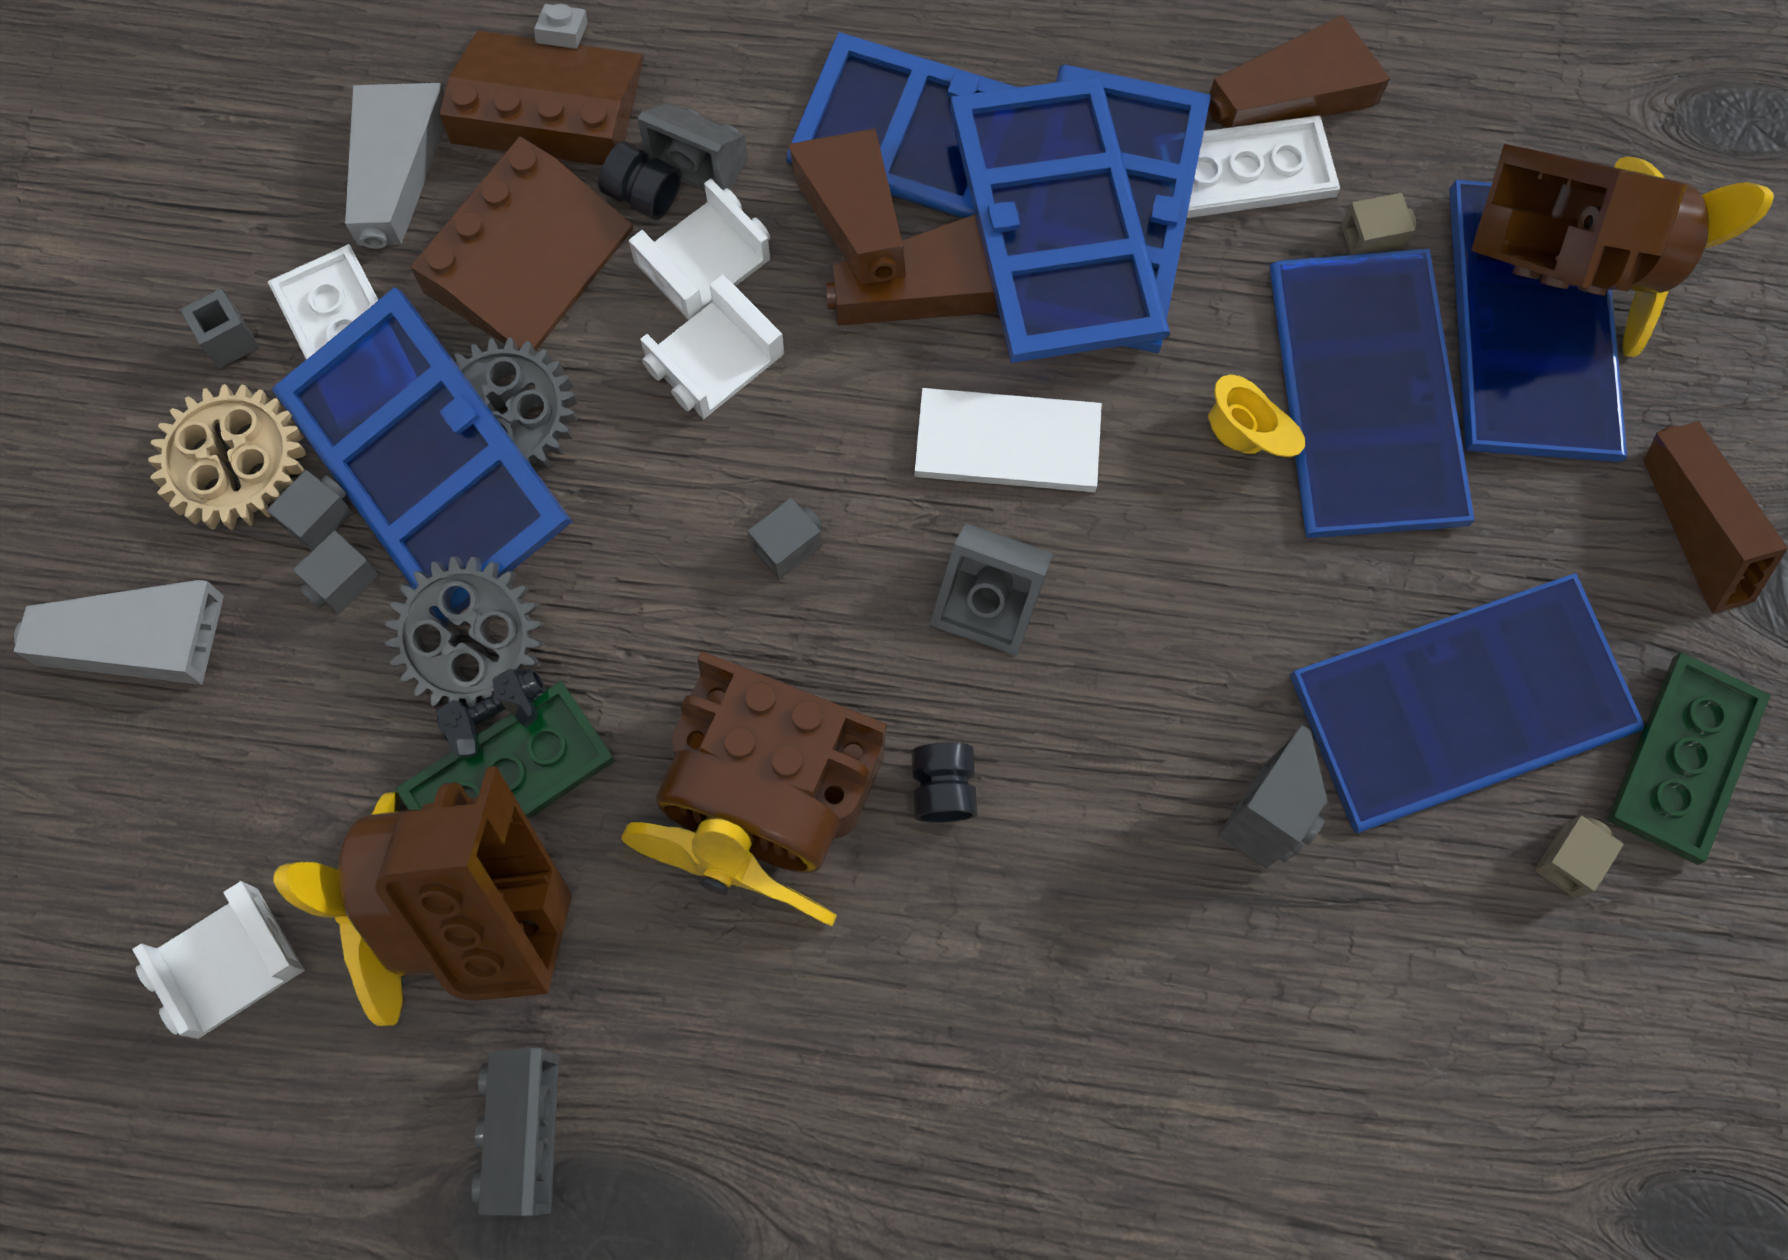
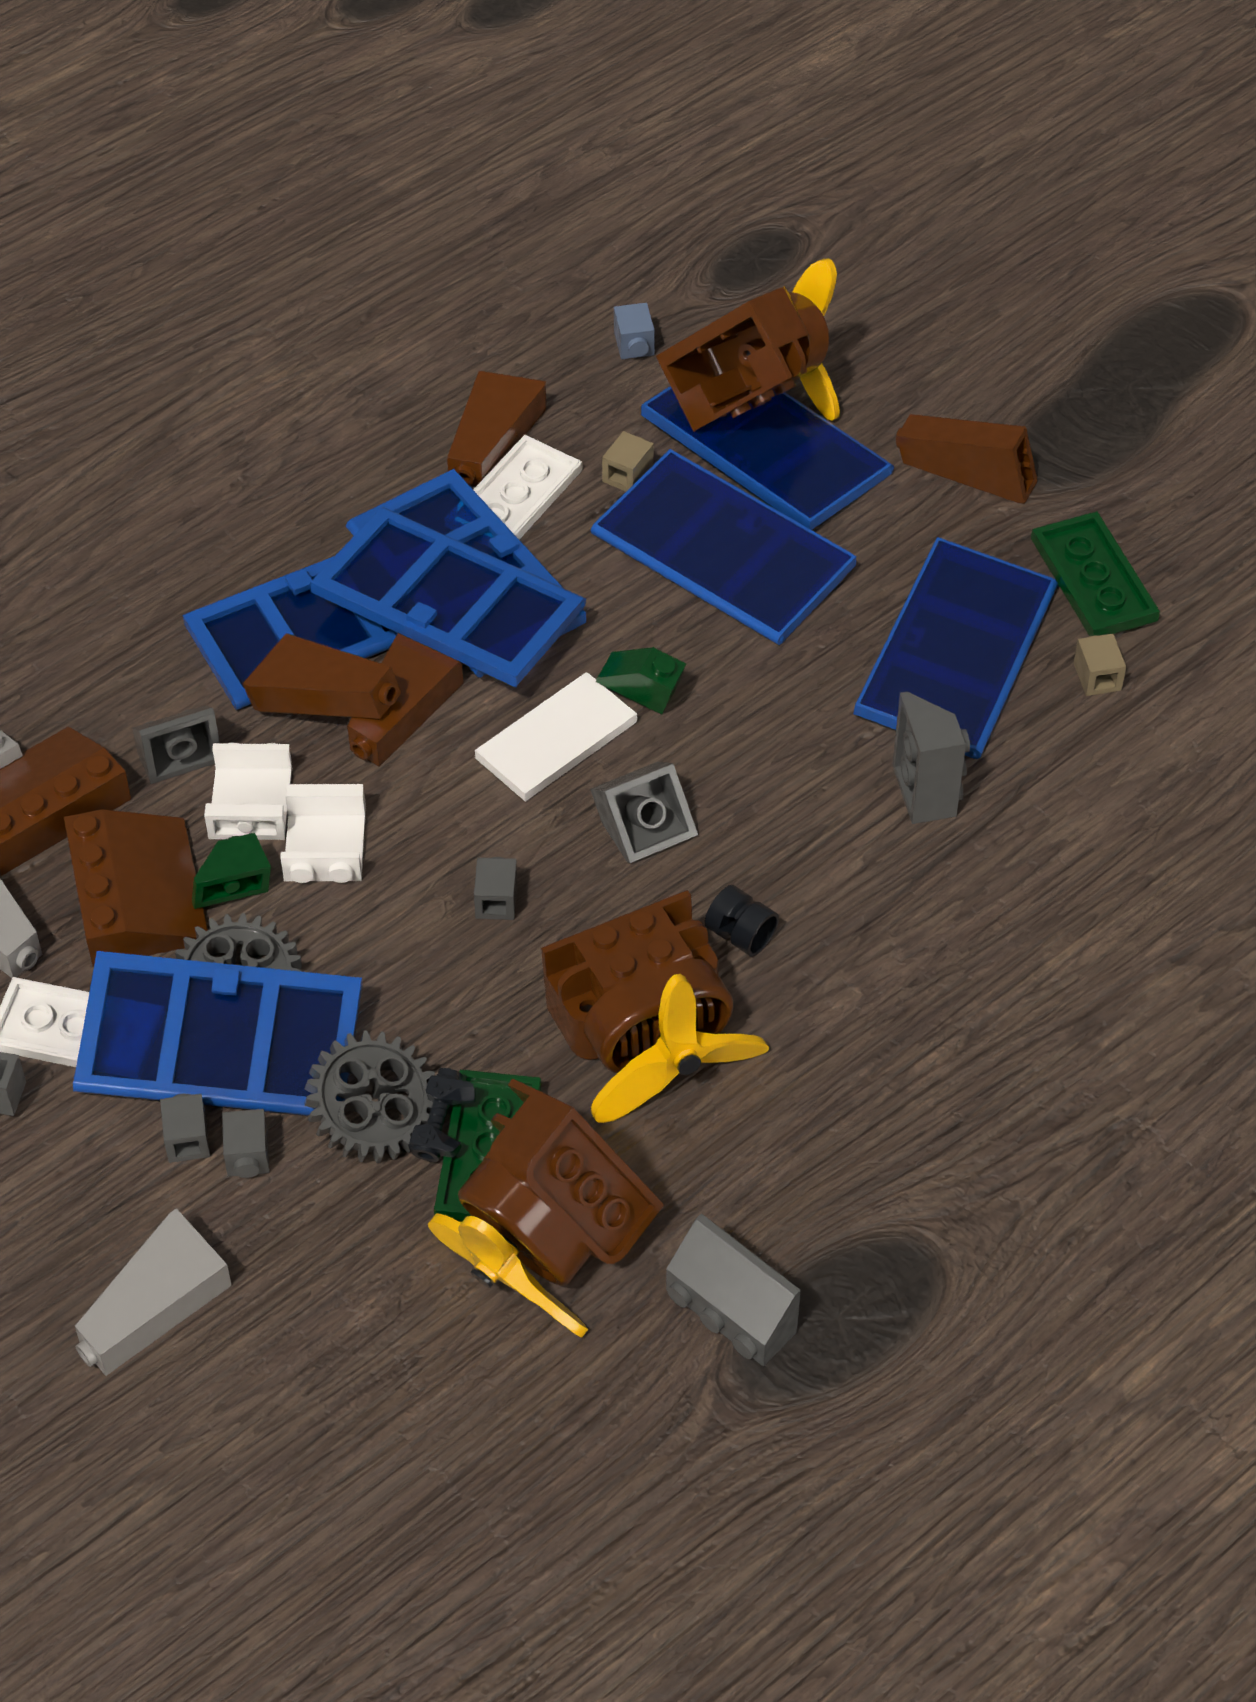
camera: 45 degrees left, 20 degrees down
(187, 471) = (90, 1148): tan gear -> none
(218, 964) = (444, 1393): white panel -> none
(598, 310) = (231, 872): none -> dark green slope
(637, 179) = (164, 785): black wheel -> none
(1138, 455) = (643, 676): none -> dark green slope
(1250, 421) = (680, 612): yellow piece -> none
(1539, 96) = (634, 330): none -> sand blue brick

